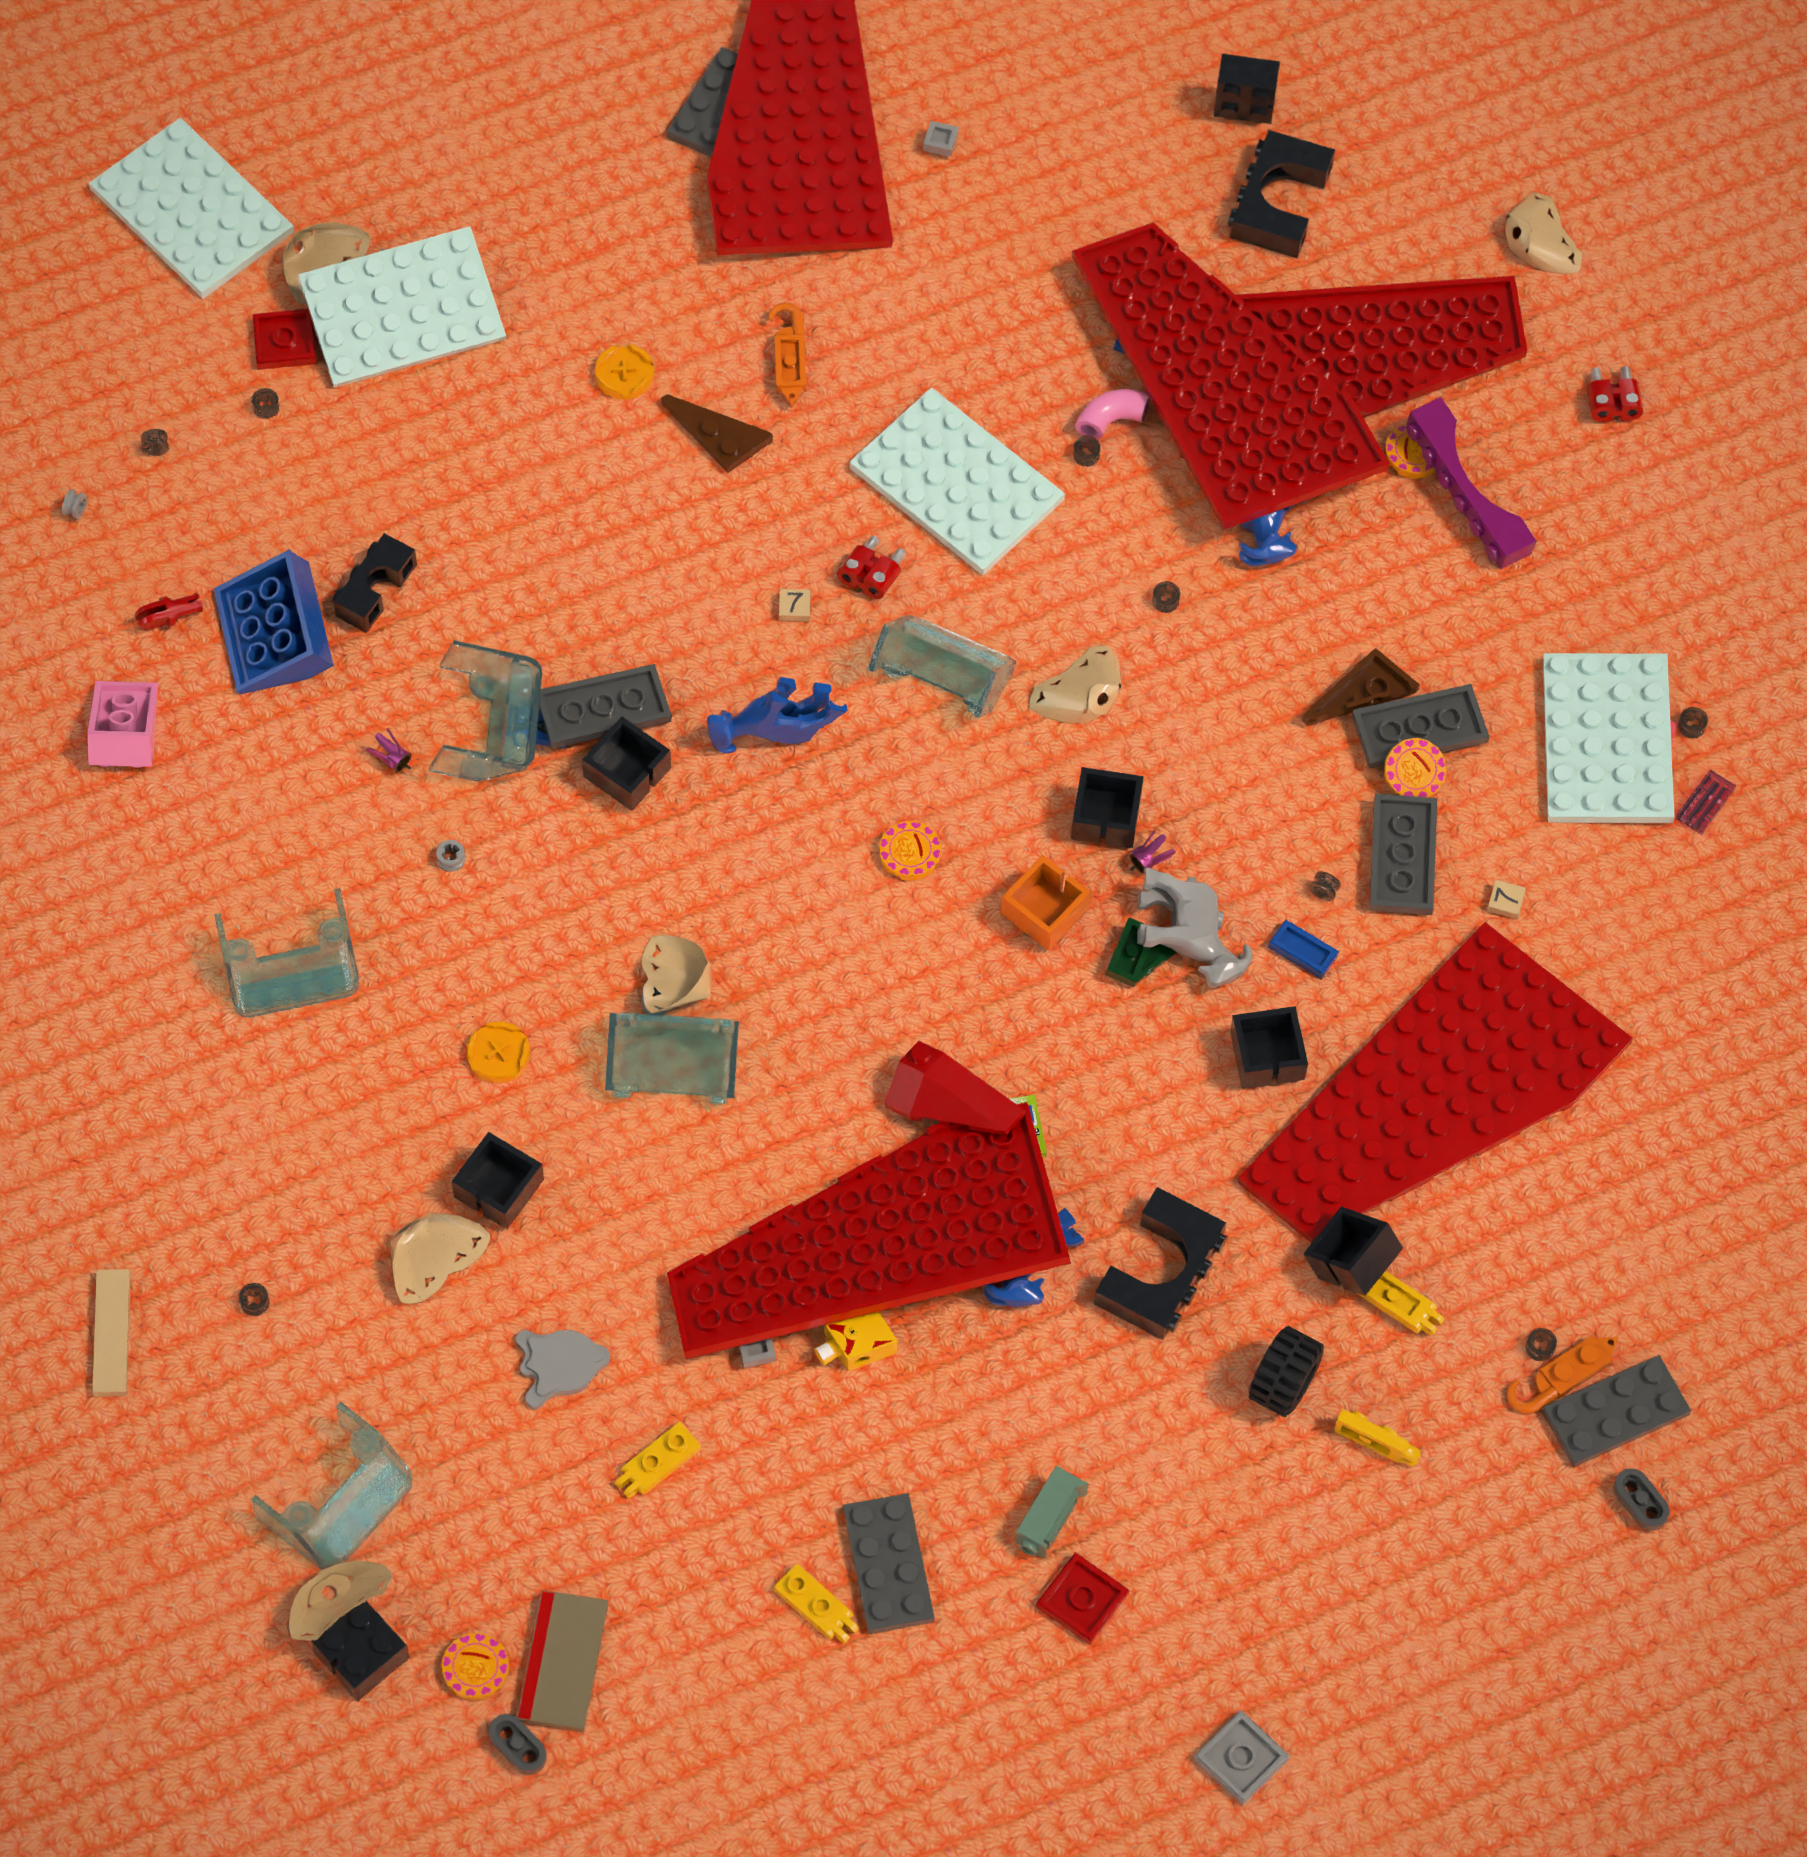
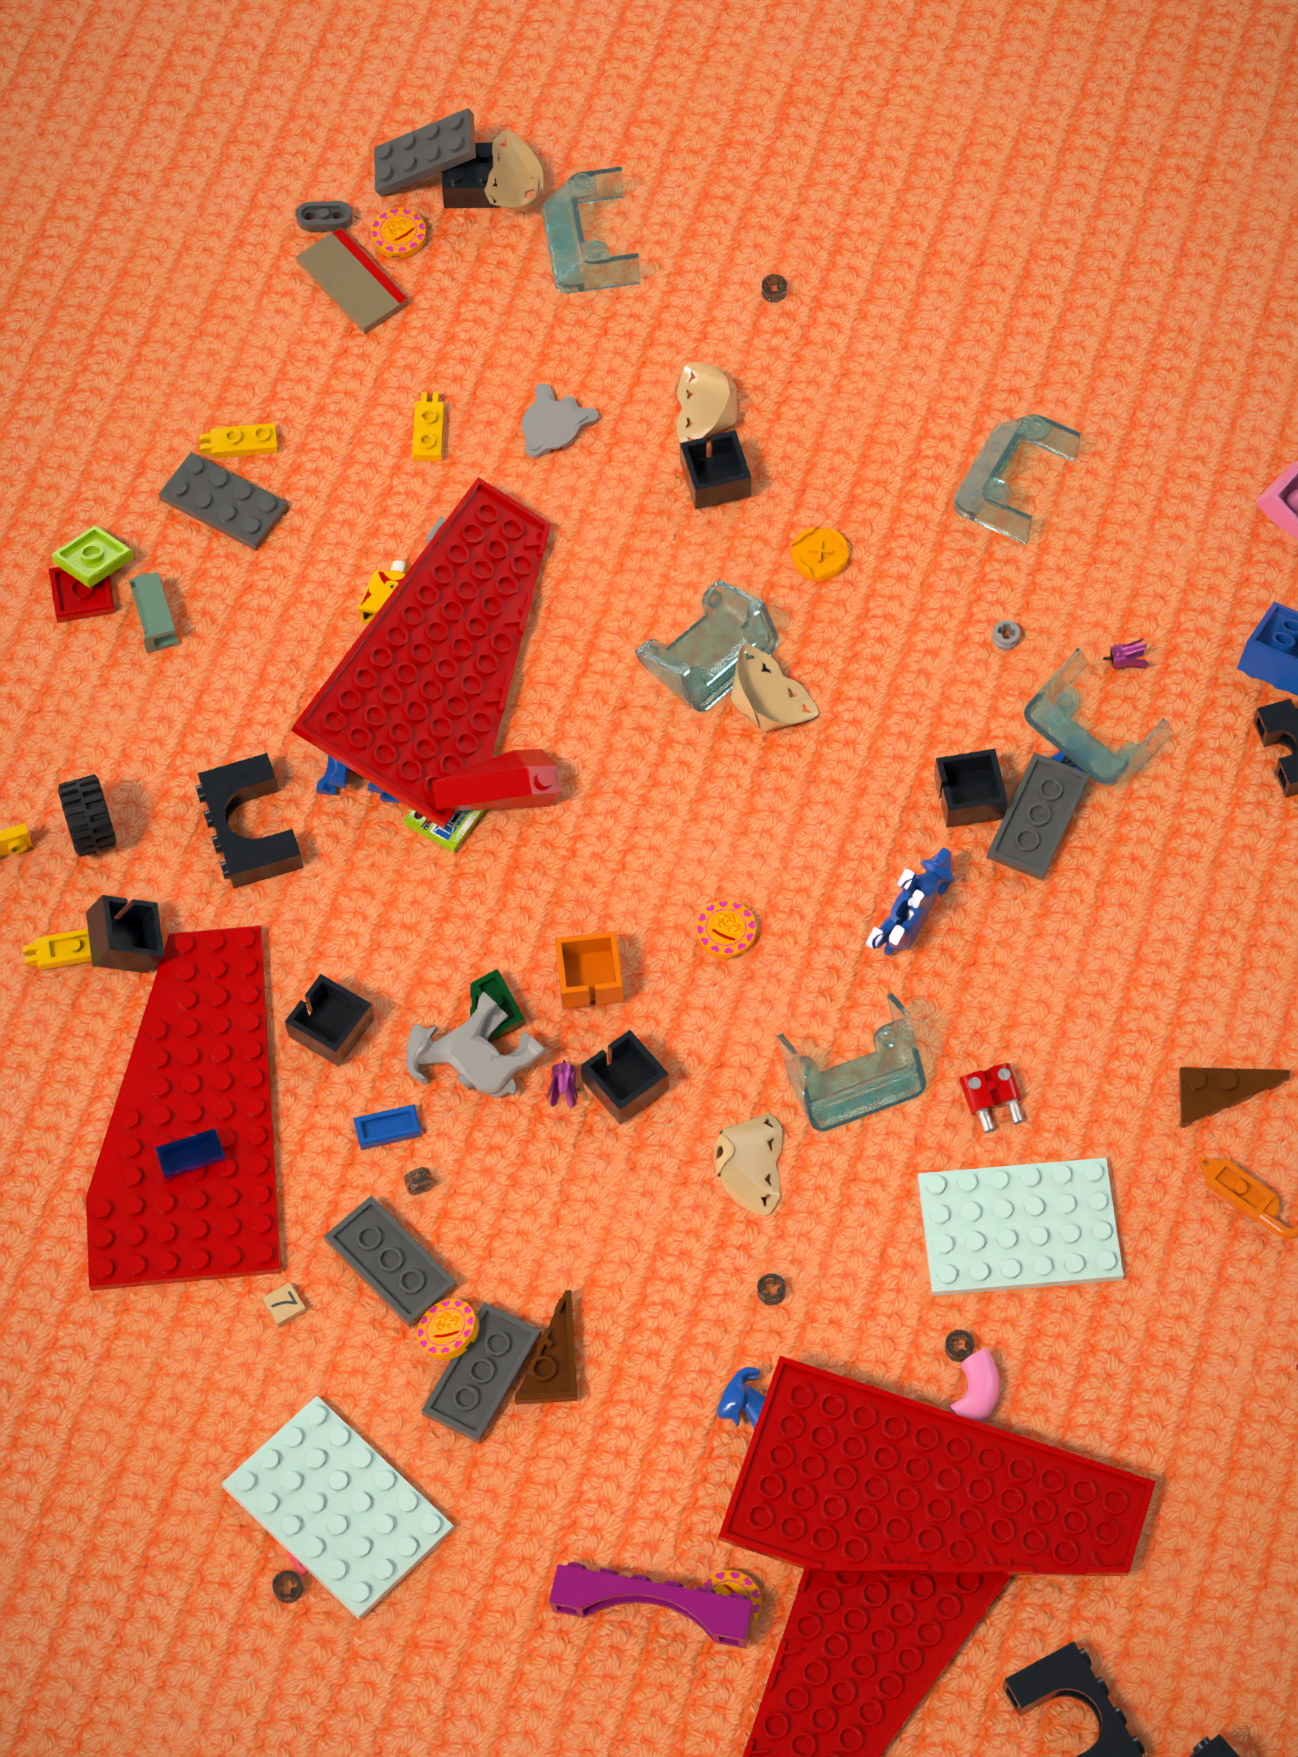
camera: 135 degrees right, 0 degrees up
(111, 1332) = (829, 198): tan tile -> none
(379, 1696) = (424, 152): none -> dark grey plate
(794, 605) = (1011, 1019): tan tile -> none
(1047, 1610) = (92, 556): none -> lime tile
(1471, 1046) = (190, 1153): none -> clear blue plate
(1705, 802) = (215, 1531): clear pink tile -> none

